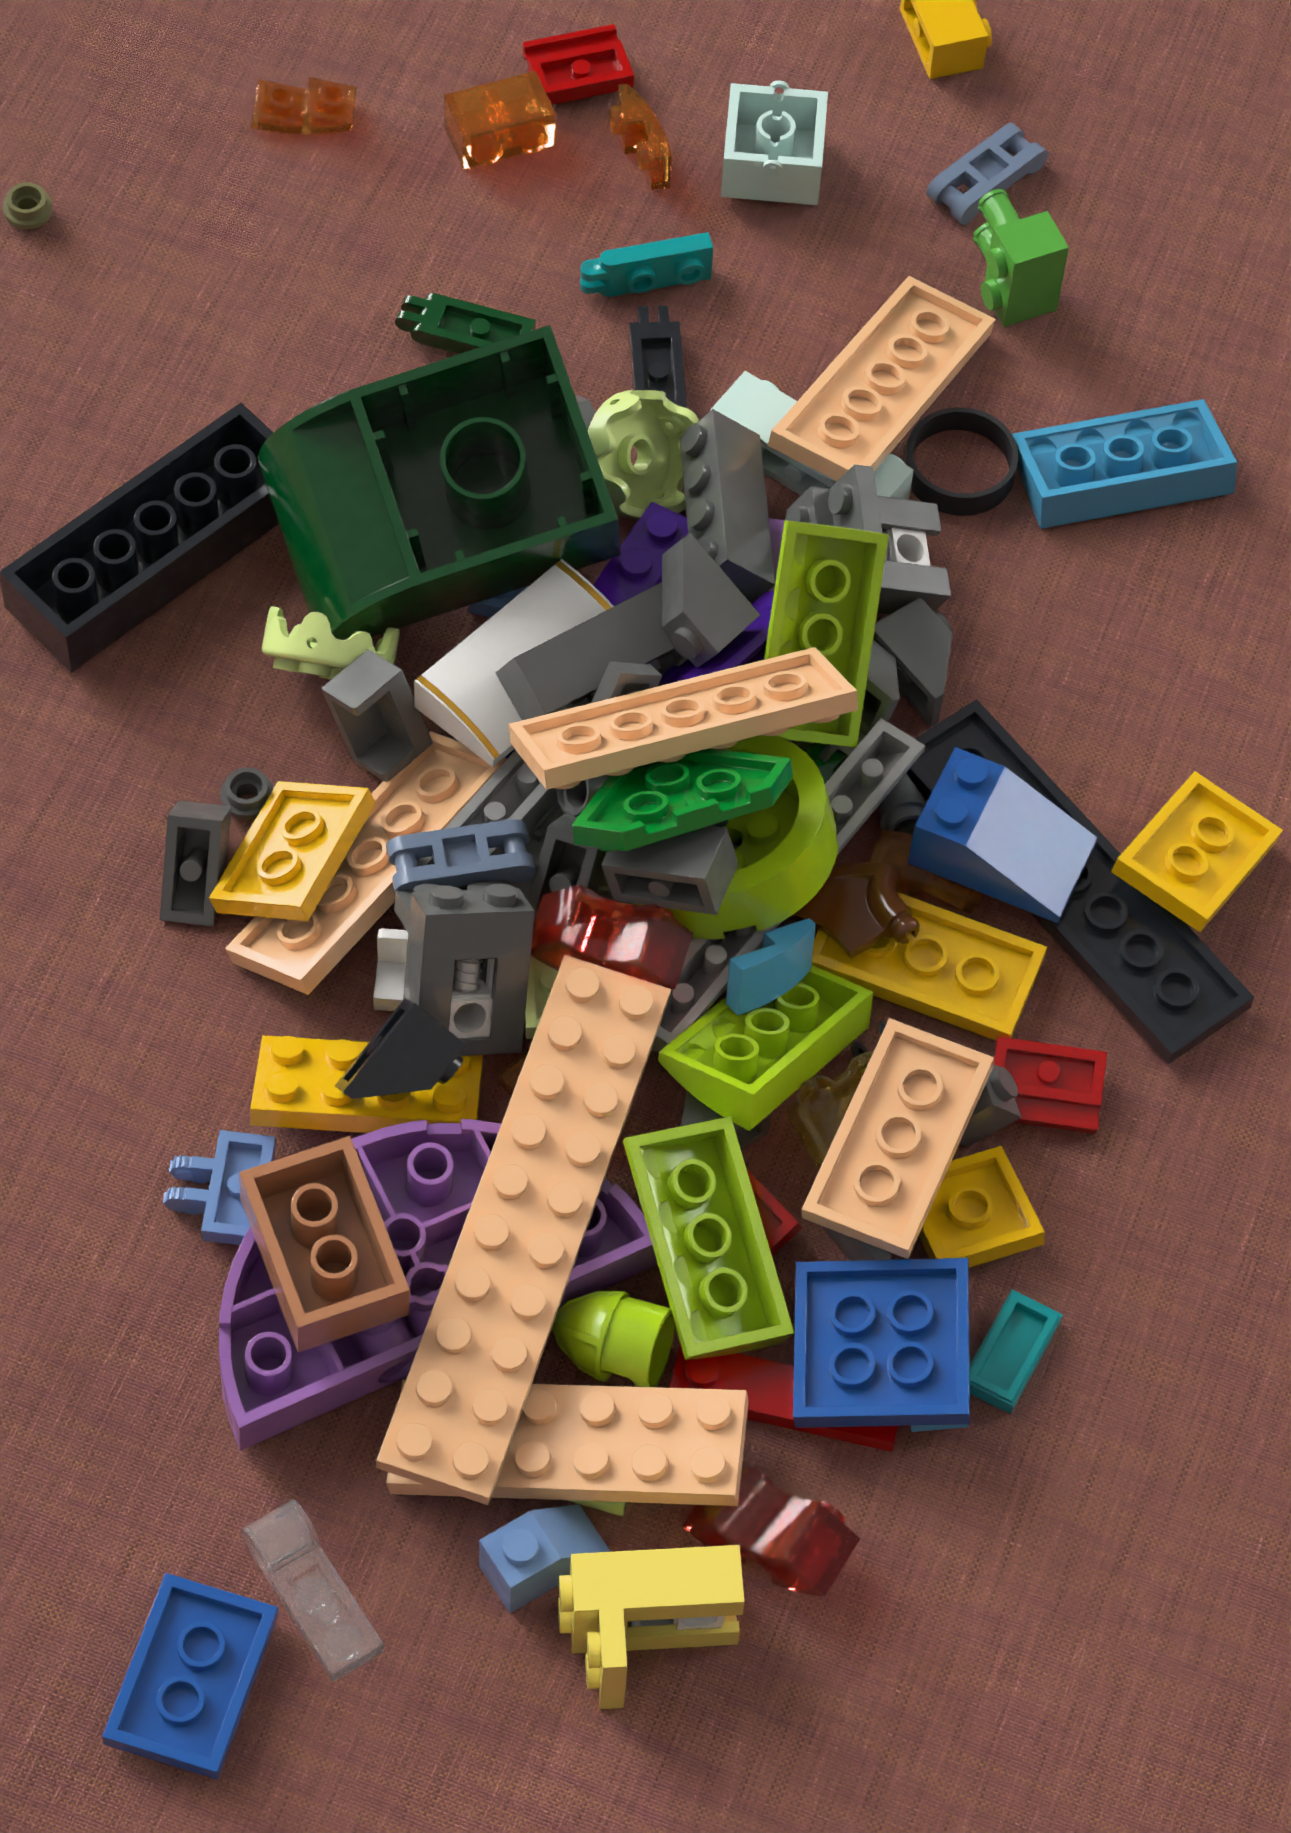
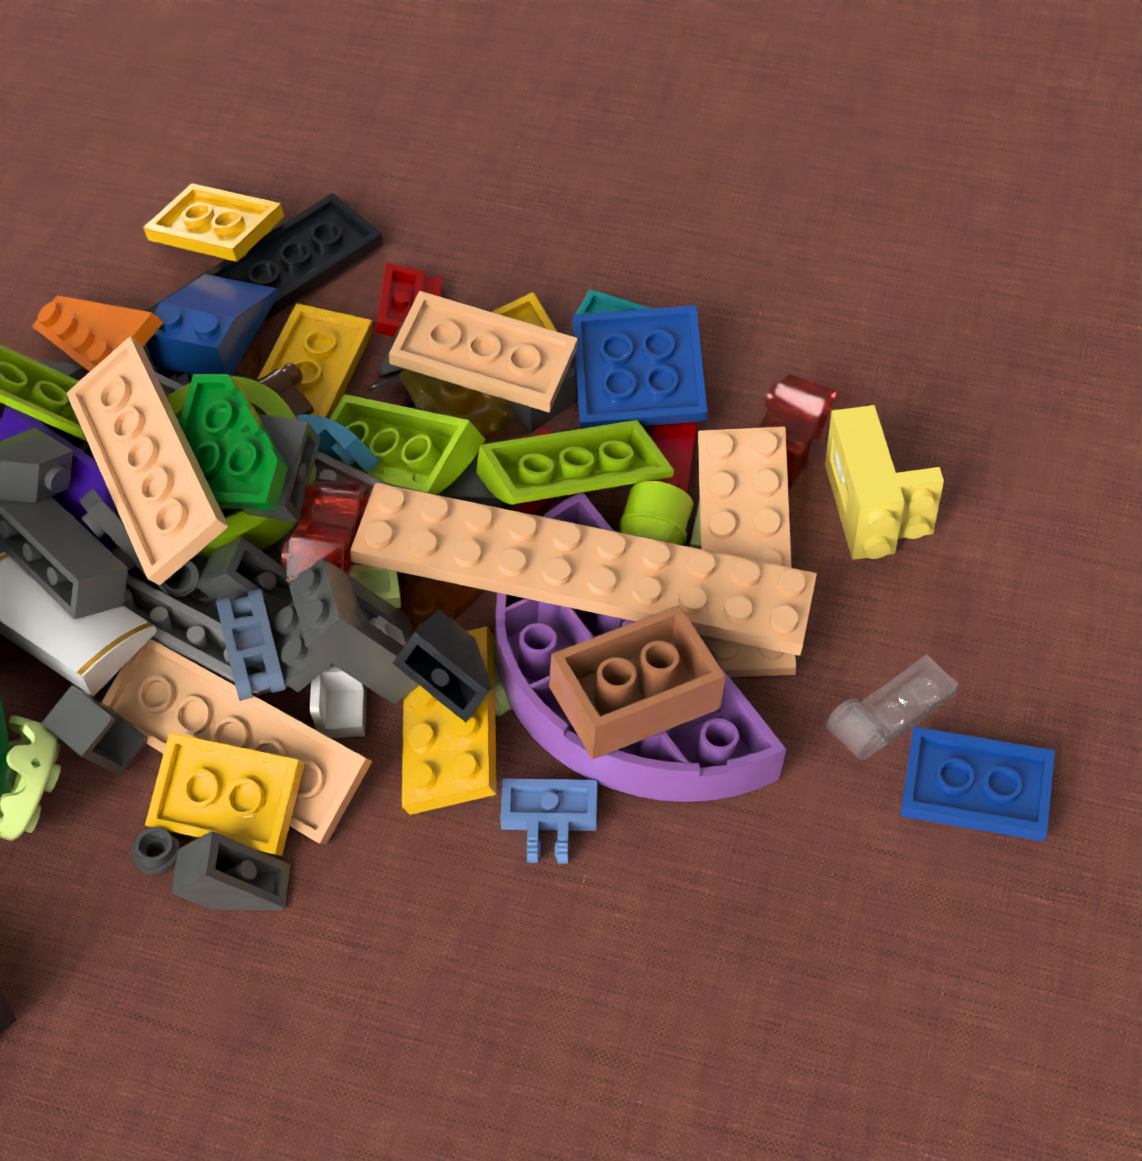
camera: 90 degrees left, 5 degrees down
(534, 1550) = (842, 568): medium blue slope -> none
(973, 706) = (92, 329): none -> orange wing

